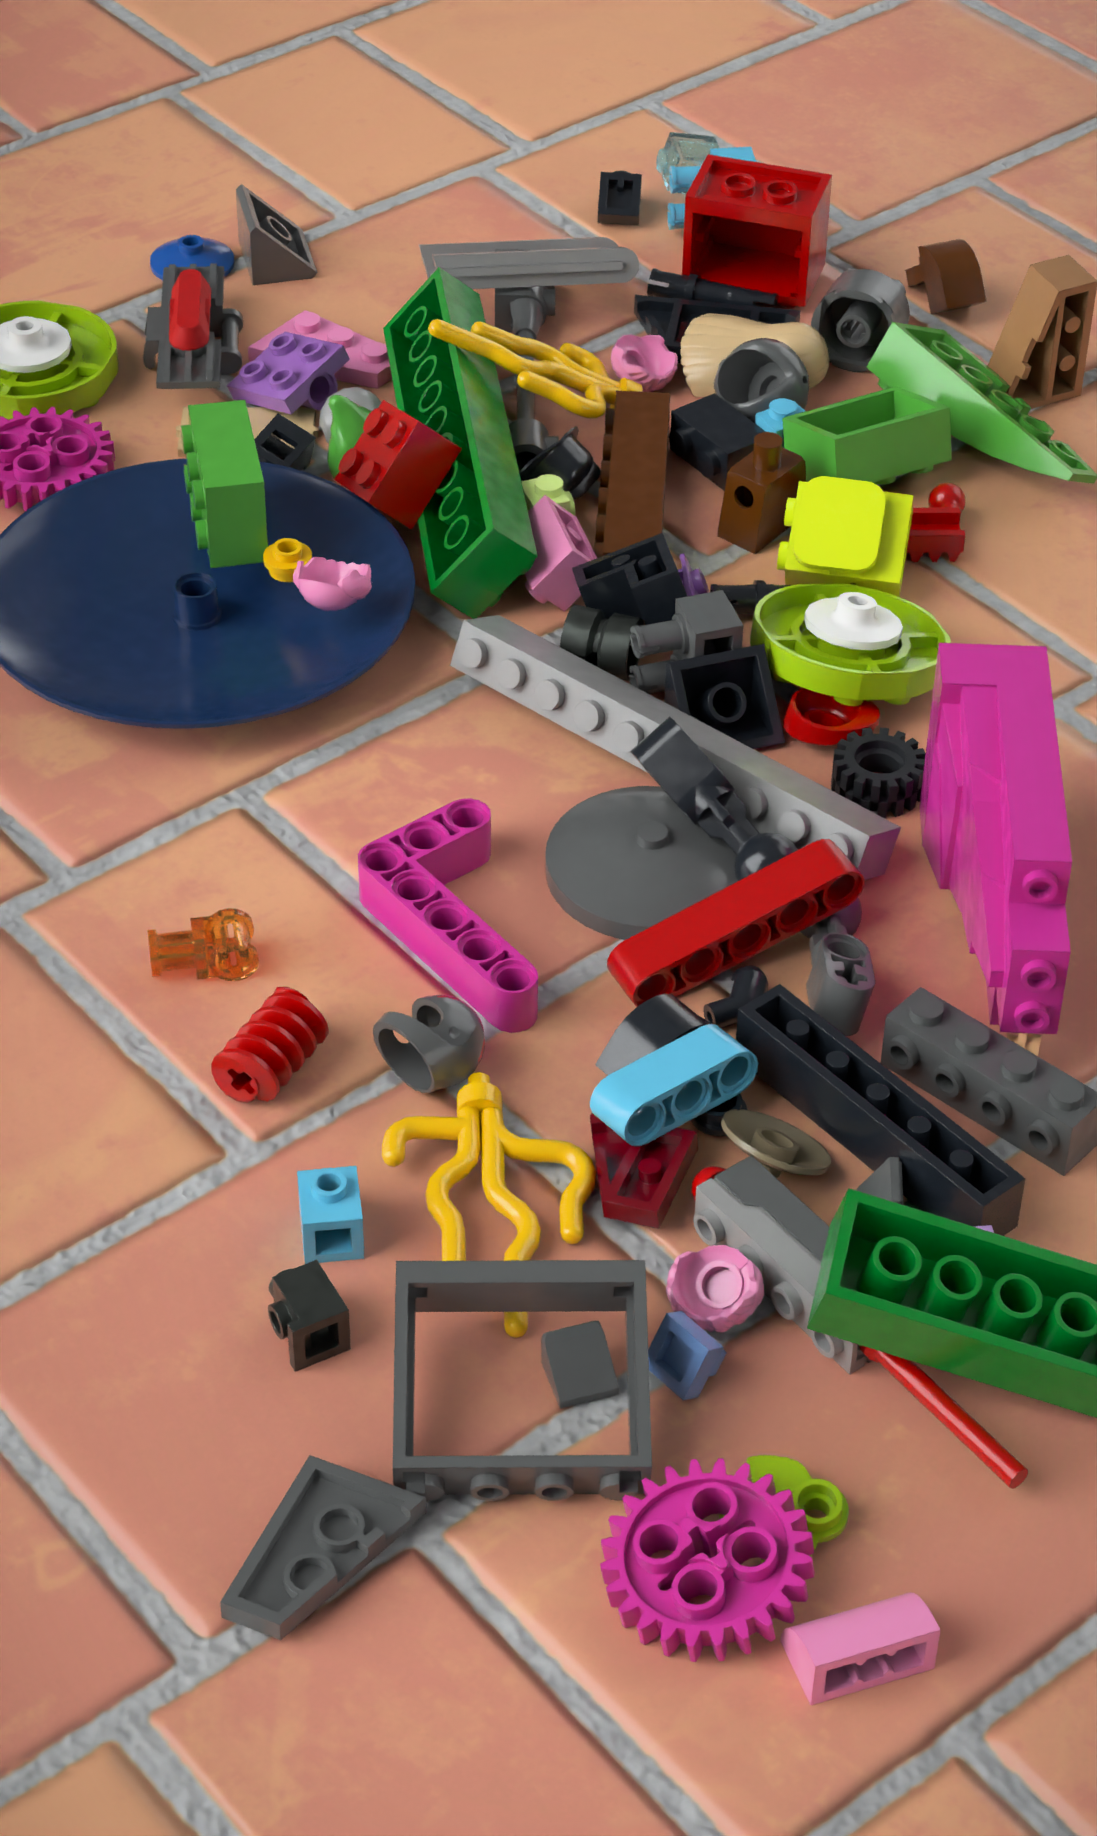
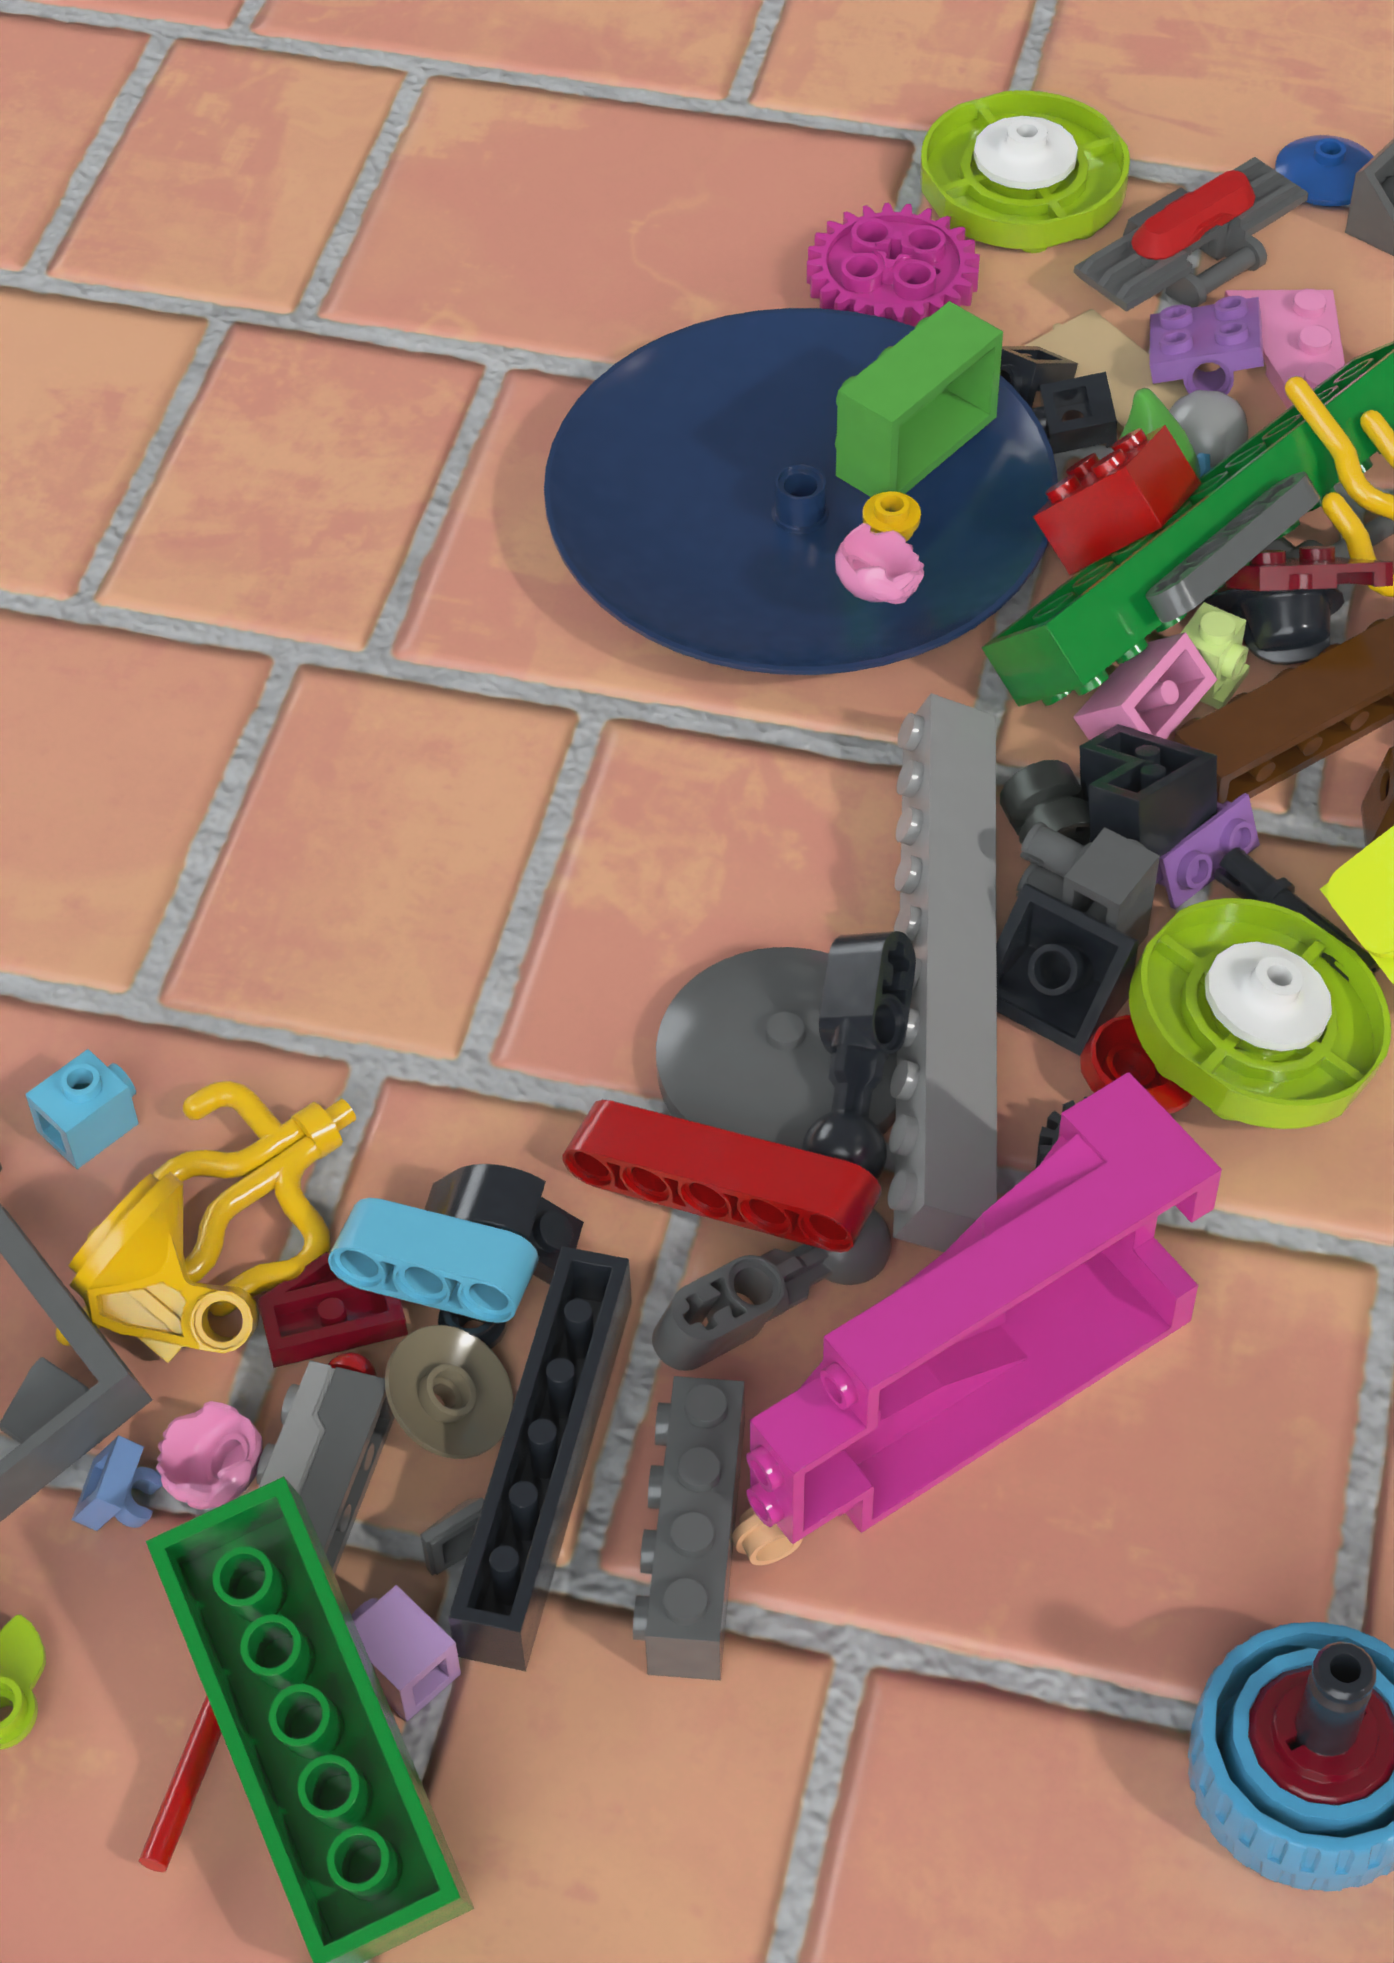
camera: 55 degrees right, 10 degrees up
(207, 947) = (348, 809): clear orange connector -> none
(270, 1047) = (252, 934): red piece -> none
(405, 890) = (554, 880): dark pink beam -> none
(442, 1043) = (347, 1057): dark grey helmet -> none
(516, 431) = (1232, 547): none -> dark grey beam
(520, 1216) = (139, 1280): none -> yellow piece
(556, 423) = (1312, 570): none -> dark red wing
(748, 984) = (651, 1248): black arm -> none

